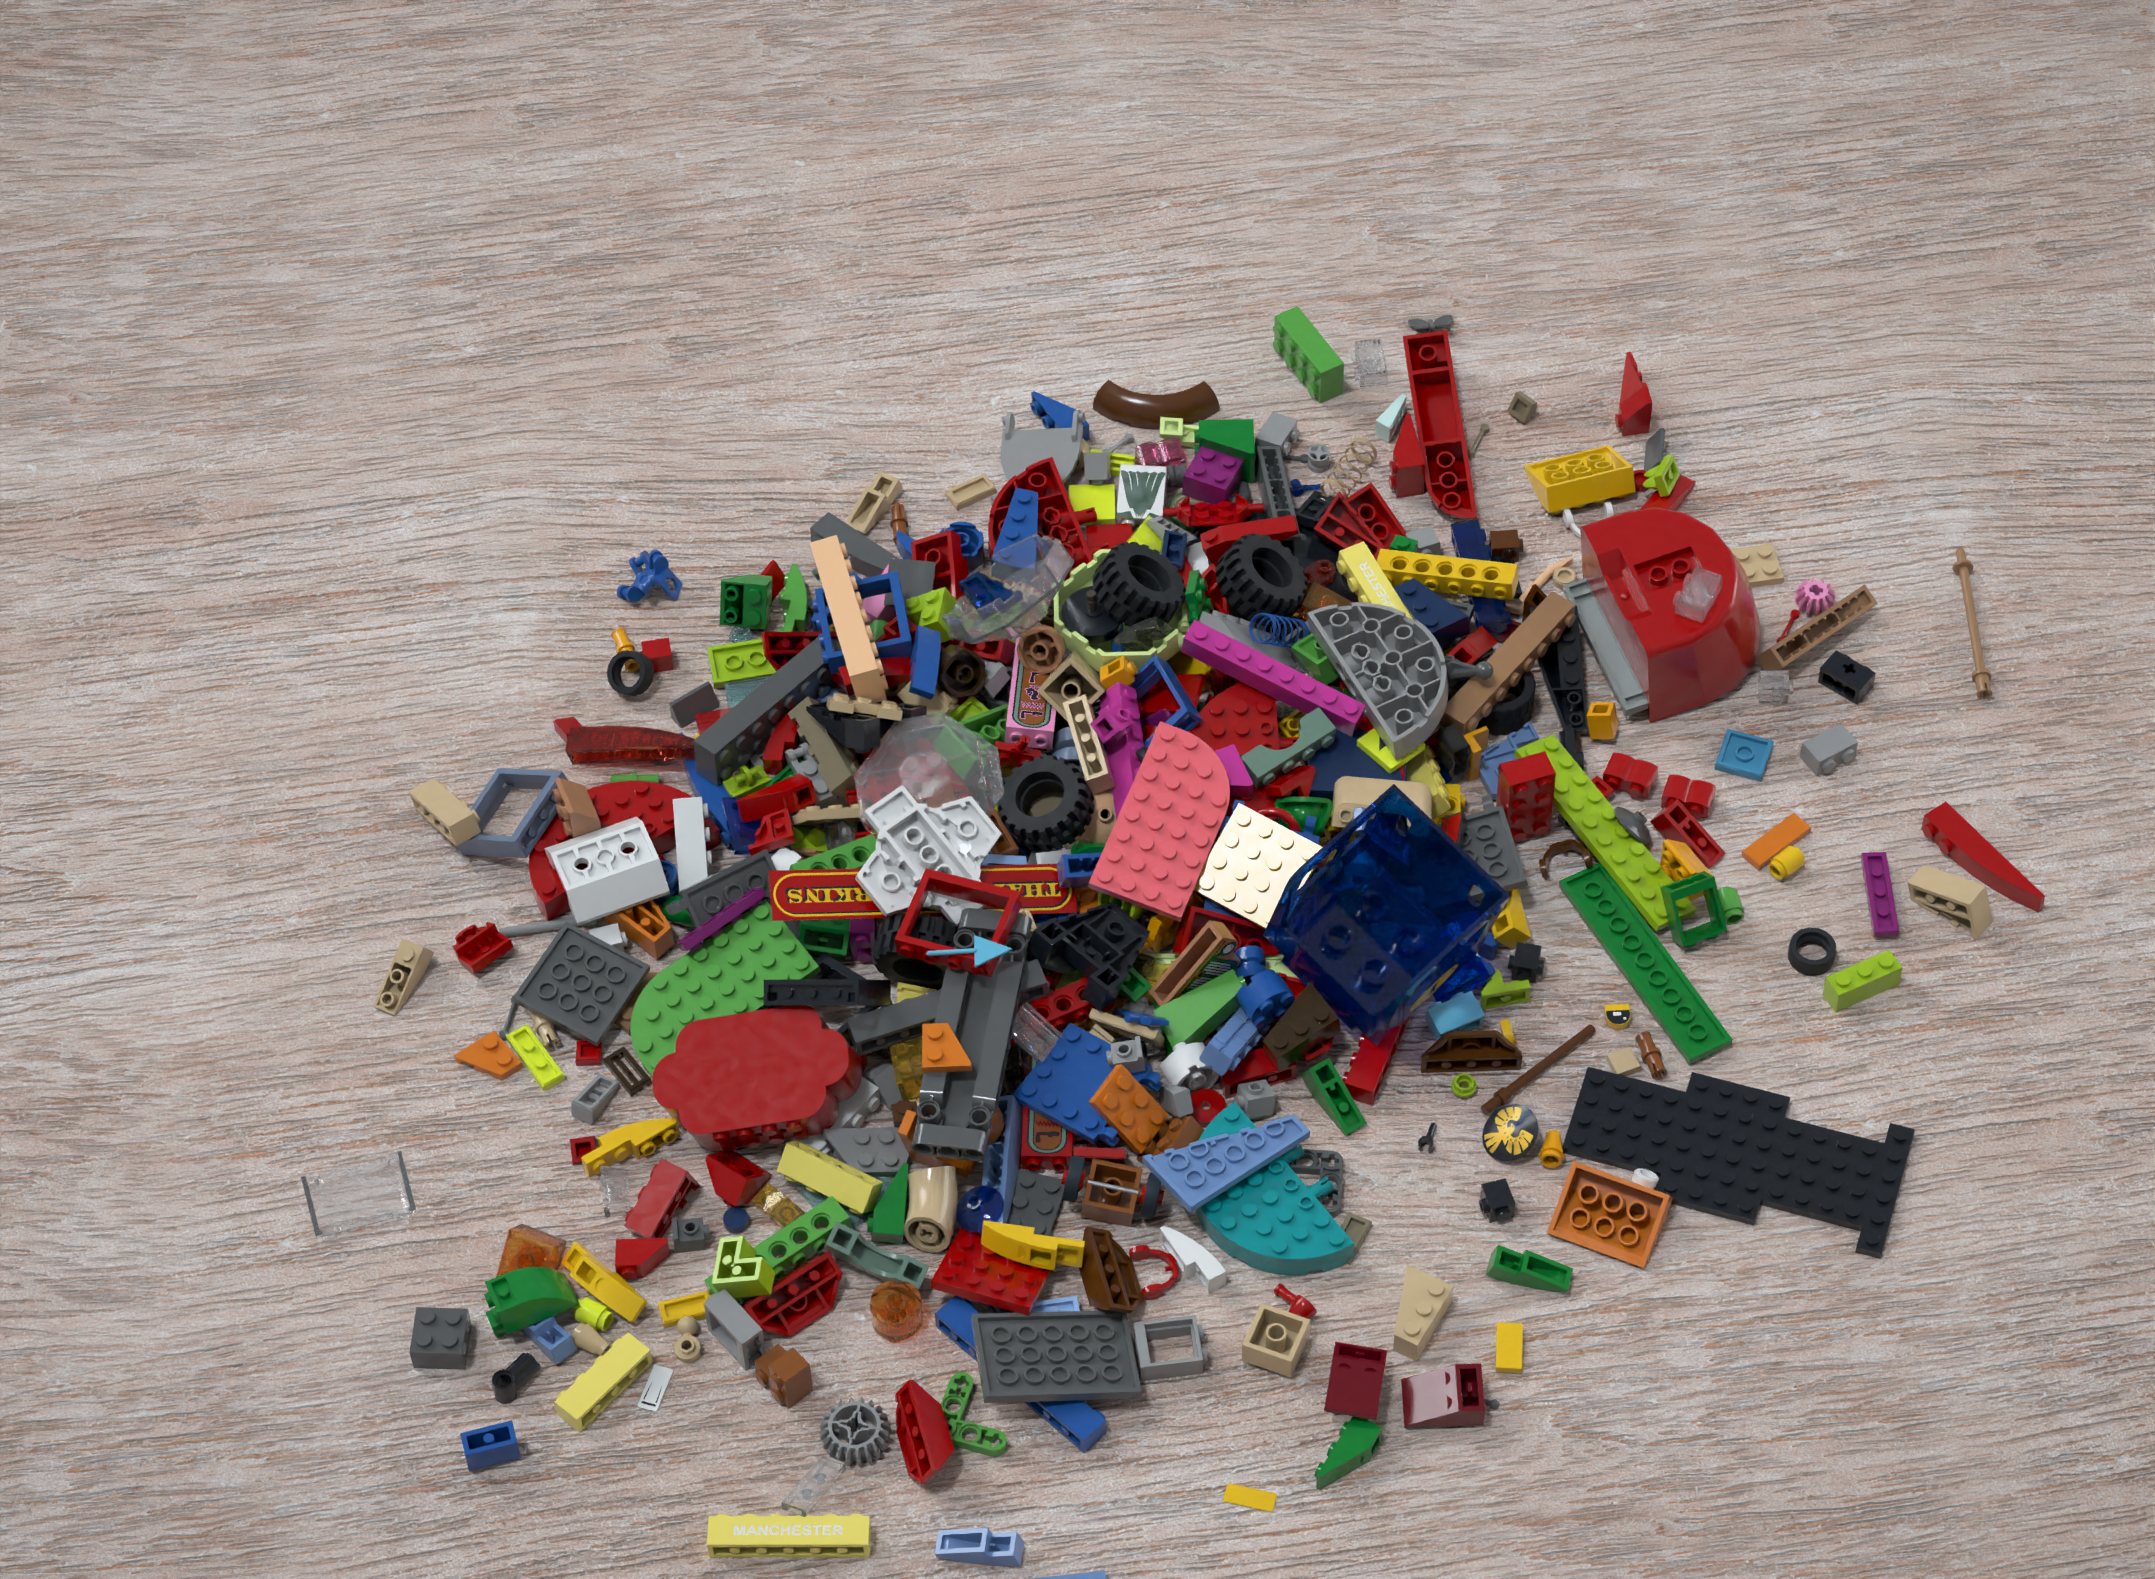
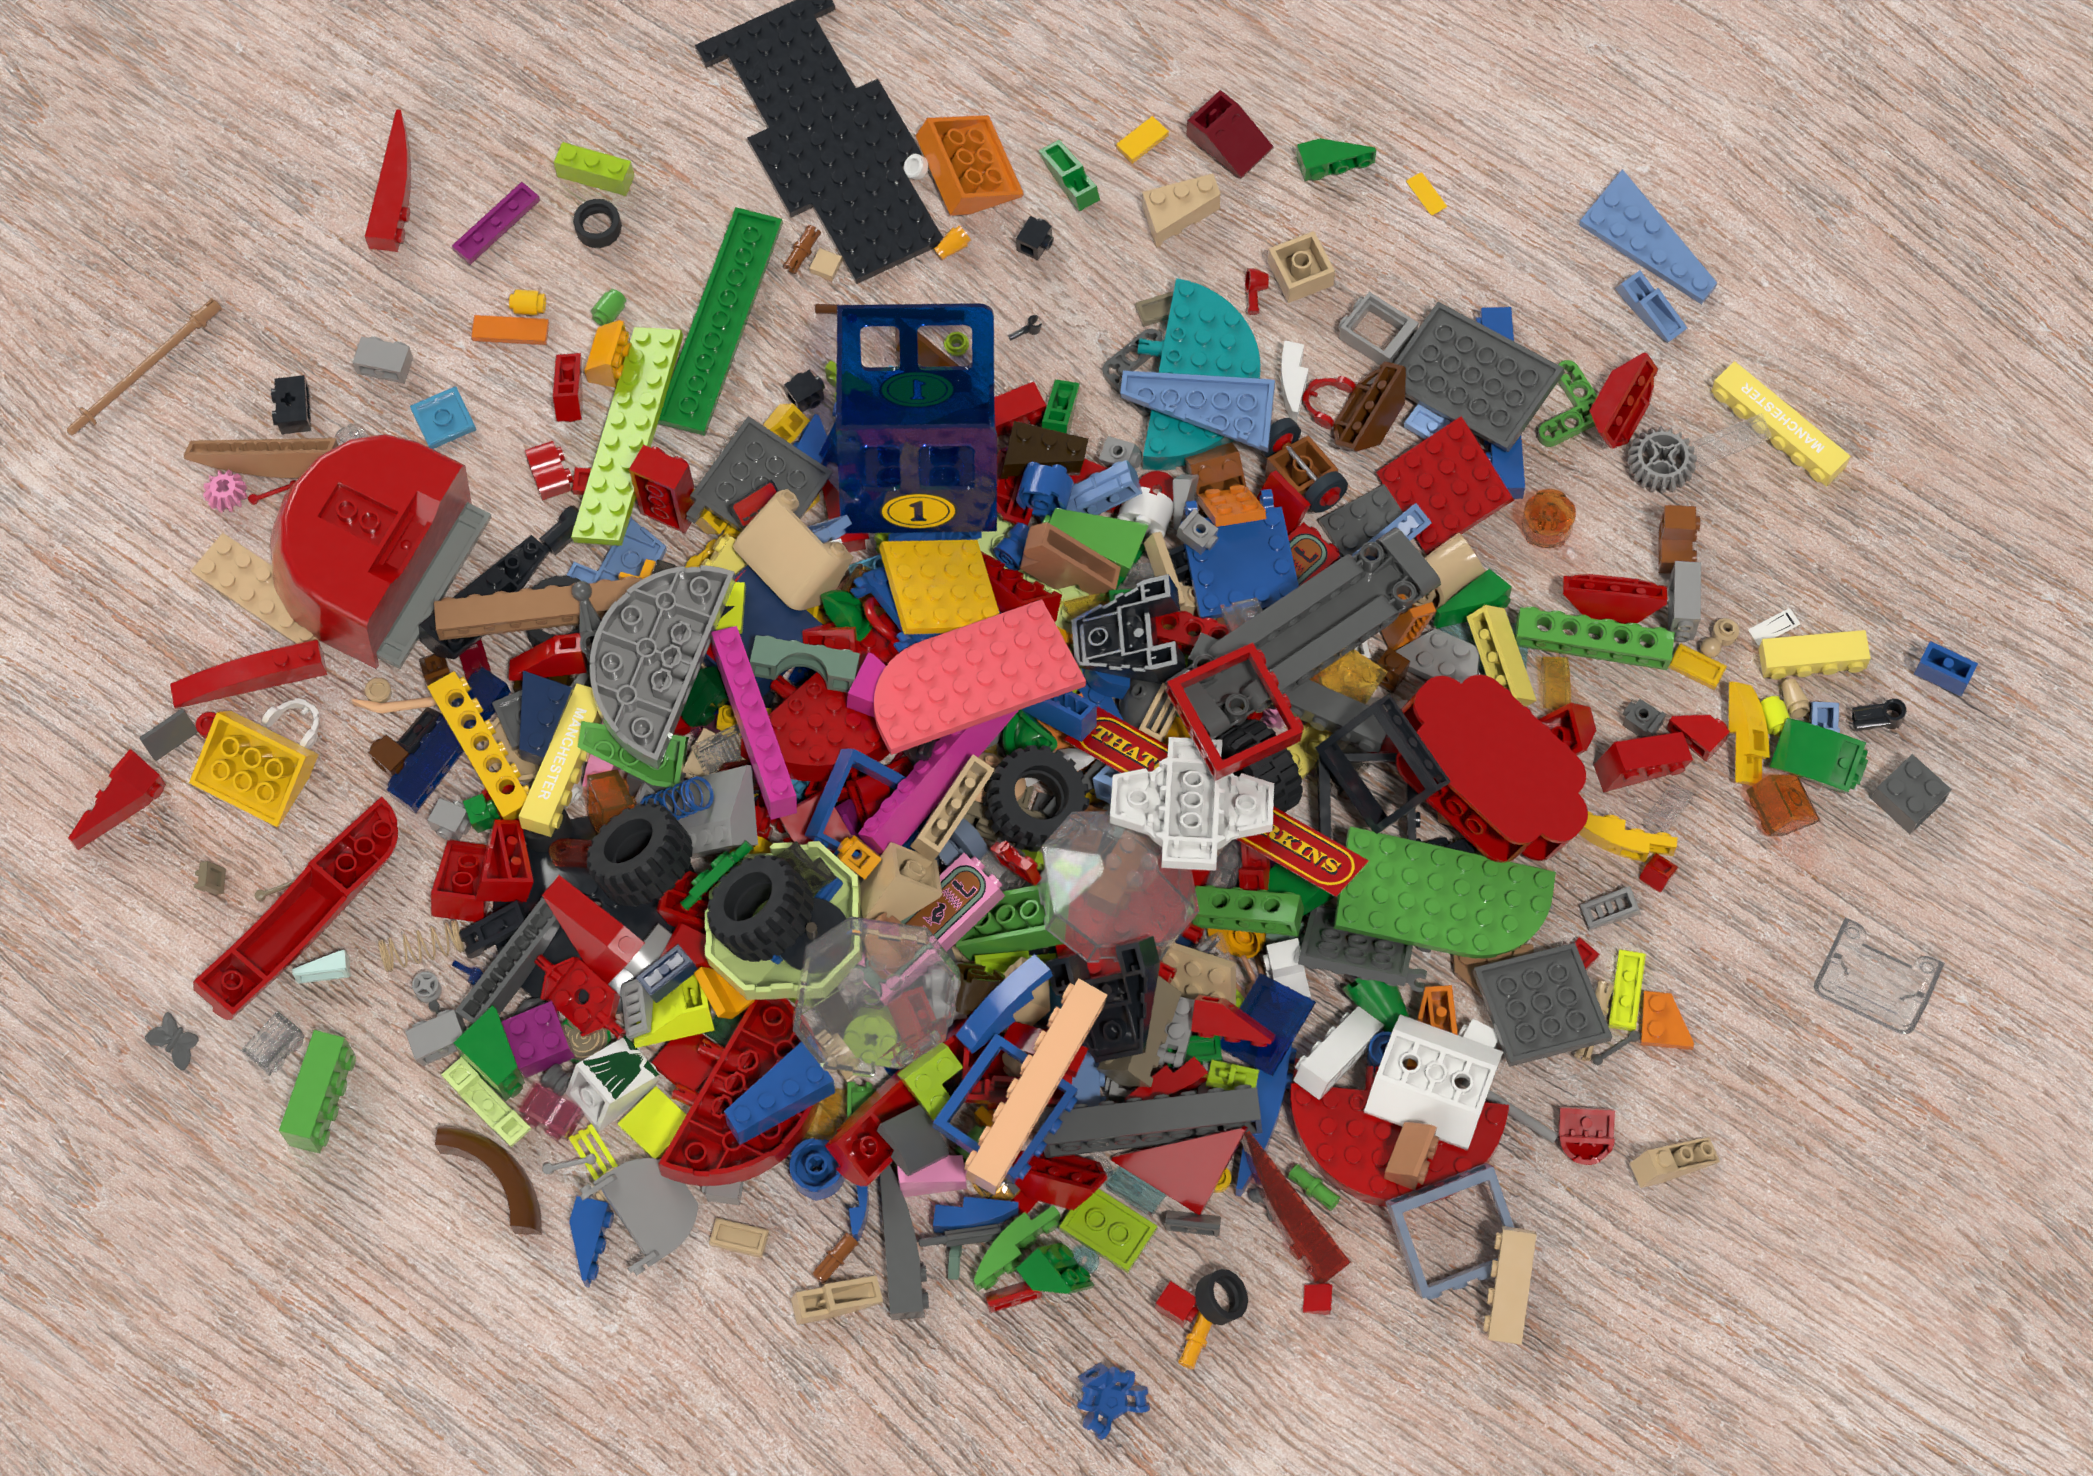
camera: 135 degrees left, 15 degrees up
(637, 1085) = (1562, 933): dark brown tile -> none
(729, 914) = (1388, 938): magenta plate -> none
(736, 1220) = (1598, 705): dark blue tile -> none
(739, 1269) = (1654, 619): lime brick -> none
(774, 832) = (1266, 988): red wing -> none
(856, 1250) = (1515, 542): sand green arch -> none
(885, 710) = (1123, 996): tan plate -> none
(942, 1050) = (1348, 625): orange wing -> none
(983, 590) = (878, 1036): clear blue wing -> none
(983, 950) = (1247, 654): medium azure piece -> none
(989, 1207) = (1418, 521): clear blue dish -> none
(1036, 1250) = (1411, 469): yellow slope -> none
(1097, 467) = (615, 1146): light grey brick -> none
(1112, 723) = (925, 791): dark pink brick -> none
(1133, 1017) = (1149, 554): blue piece -> none
(1355, 1381) = (1282, 186): dark red slope -> none
(1407, 463) = (368, 904): red slope -> none
(1506, 1030) = (883, 350): yellow tile -> none
(1510, 1132) = (969, 275): shield -> none
(1563, 846) = (662, 429): reddish brown piece -> none
(1602, 720) = (514, 526): light orange brick -> none
(1617, 1015) = (786, 300): tile -> none
(1634, 823) = (599, 423): dark grey dish -> none
(1663, 476) = (191, 700): lime tile -> none
(1685, 887) = (640, 309): green window -> none
(1694, 794) = (529, 416): red brick -> none
(1698, 594) = (373, 460): clear brick -> none
(1953, 897) = (455, 170): tan wedge -> none

